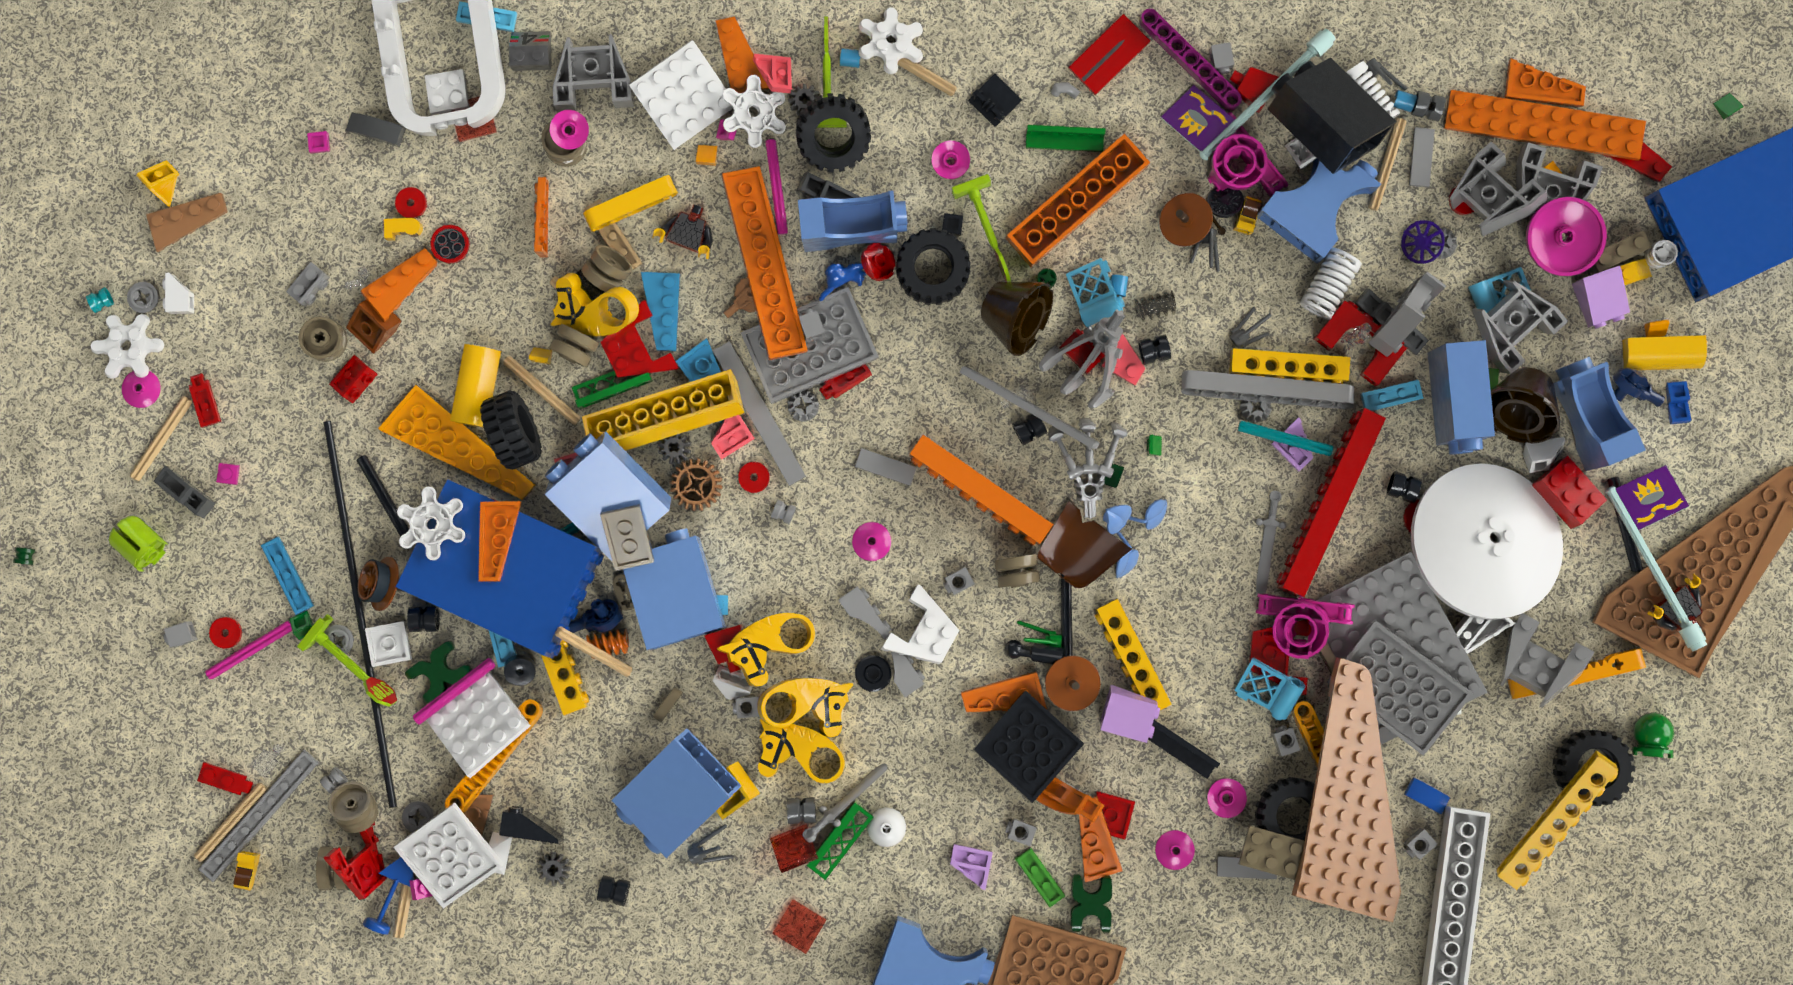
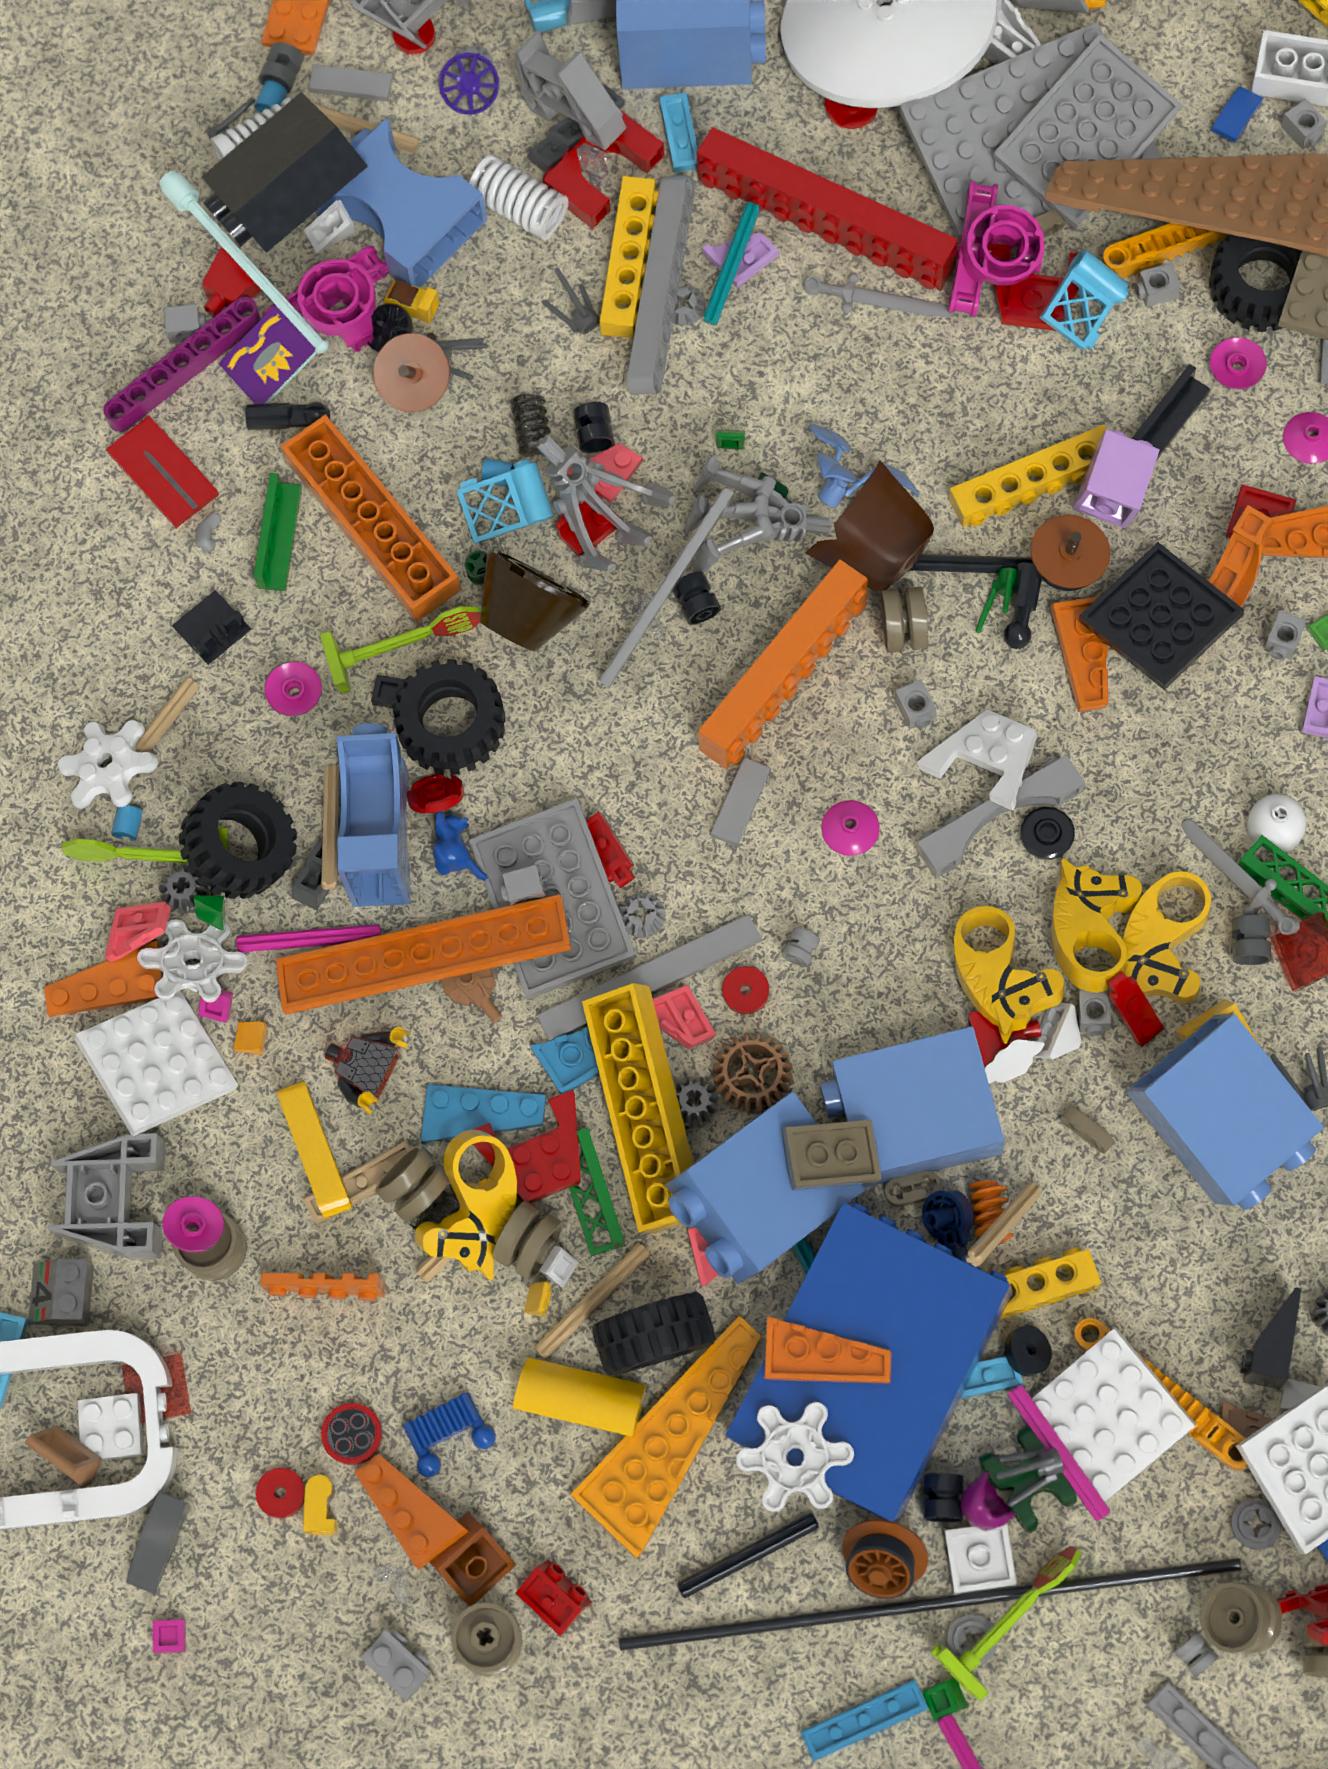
camera: 80 degrees left, 15 degrees down
(417, 646) = (983, 1505): none -> magenta hair
(426, 67) = (65, 1454): none -> medium nougat tile
(440, 683) = (1044, 1462): none -> dark grey plant
(458, 301) = (443, 1424): none -> blue gear
(561, 367) = (559, 1266): none -> white tile
(709, 654) = (1012, 1060): none -> white sticker
(747, 733) = (1134, 1008): none -> red hinge
(789, 120) = (211, 910): none -> green slope
(848, 193) = (330, 828): none -> tan axle
(1154, 136) = (283, 415): none -> black piece
(1405, 487) = (807, 121): black wheel -> none

